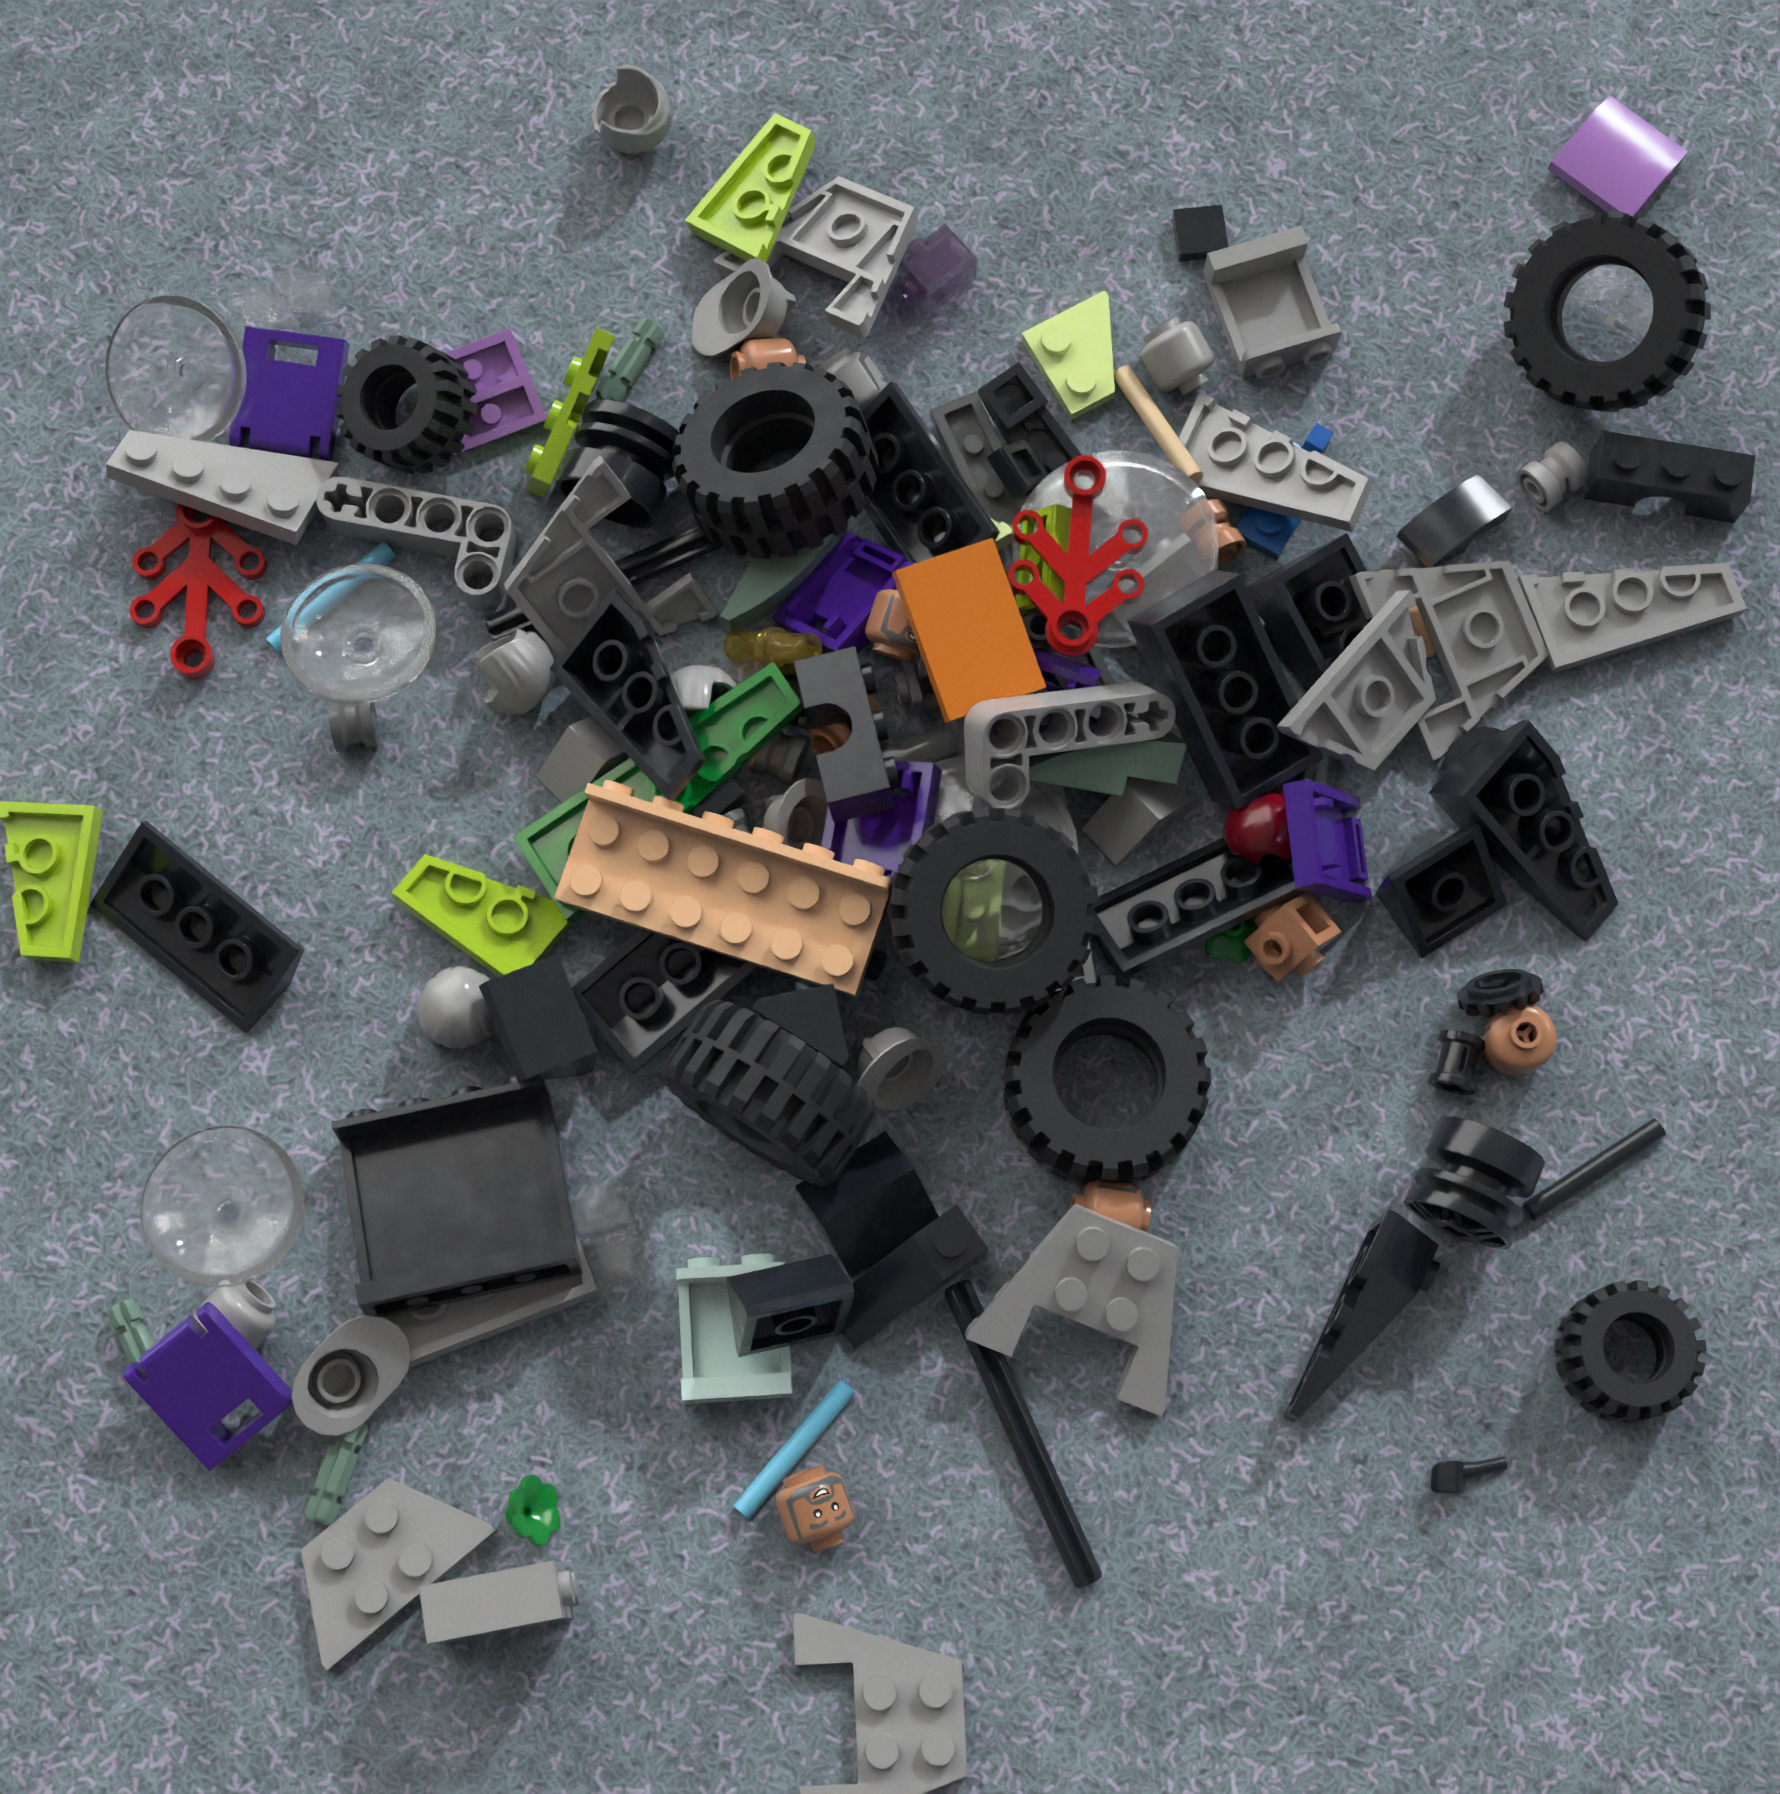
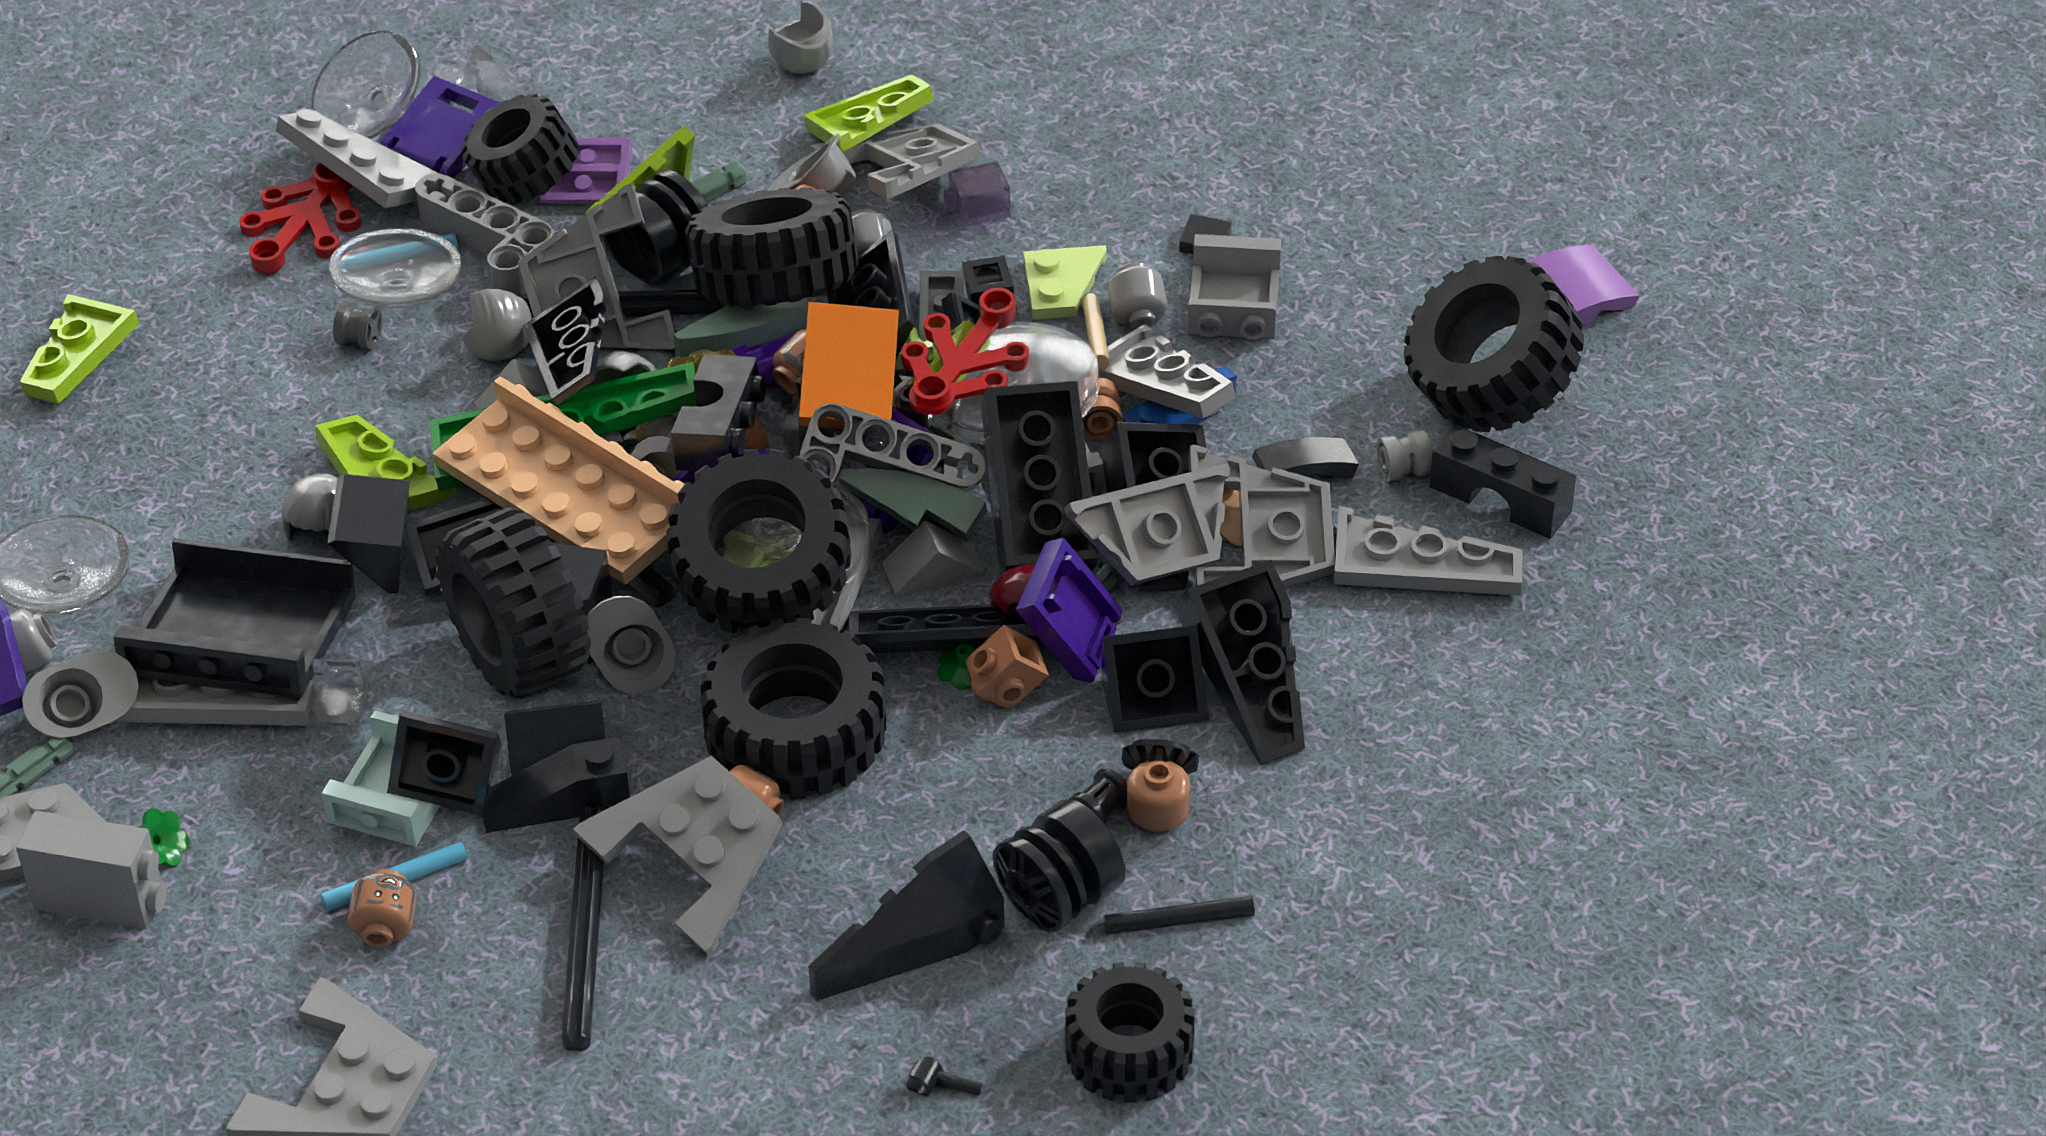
camera: 25 degrees right, 30 degrees down
(197, 927) = (160, 408): black slope -> none

